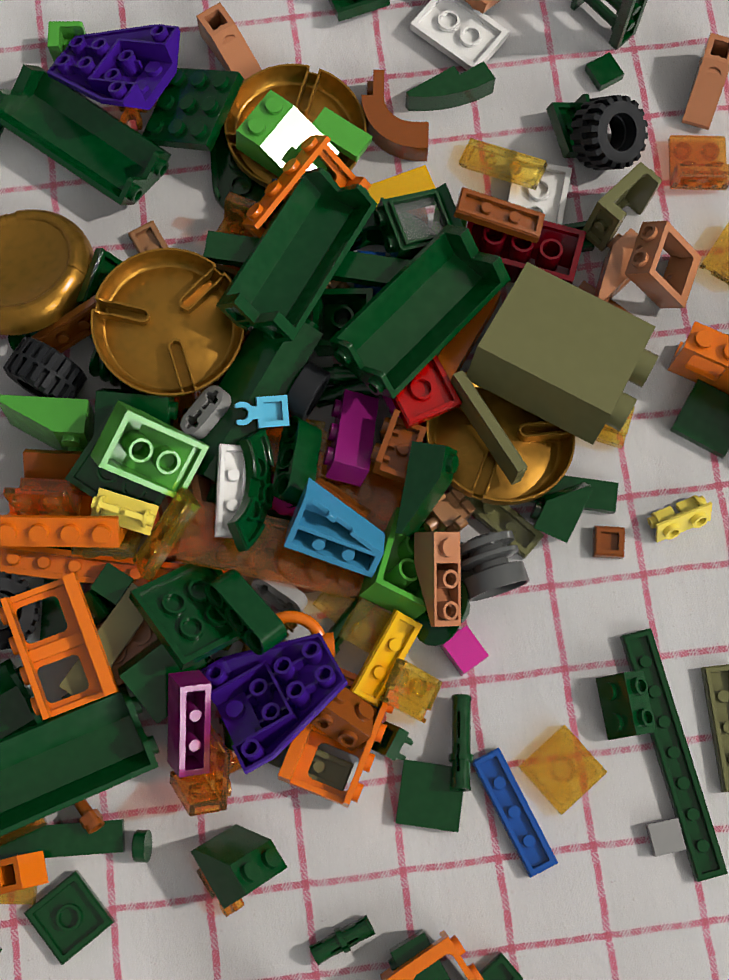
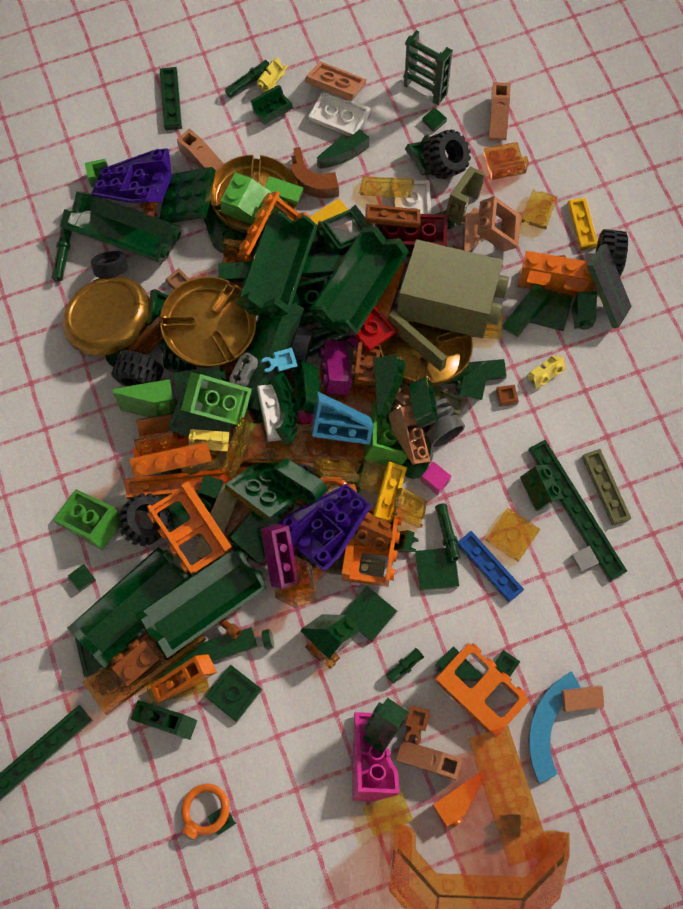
camera: 10 degrees left, 5 degrees down
(46, 191) = (109, 264): none -> black tyre
(308, 842) = (370, 613): none -> dark green tile
(310, 606) = (336, 470): none -> clear yellow plate
(472, 532) = (423, 402): none -> dark green beam
(672, 413) = (526, 310): none -> dark green tile

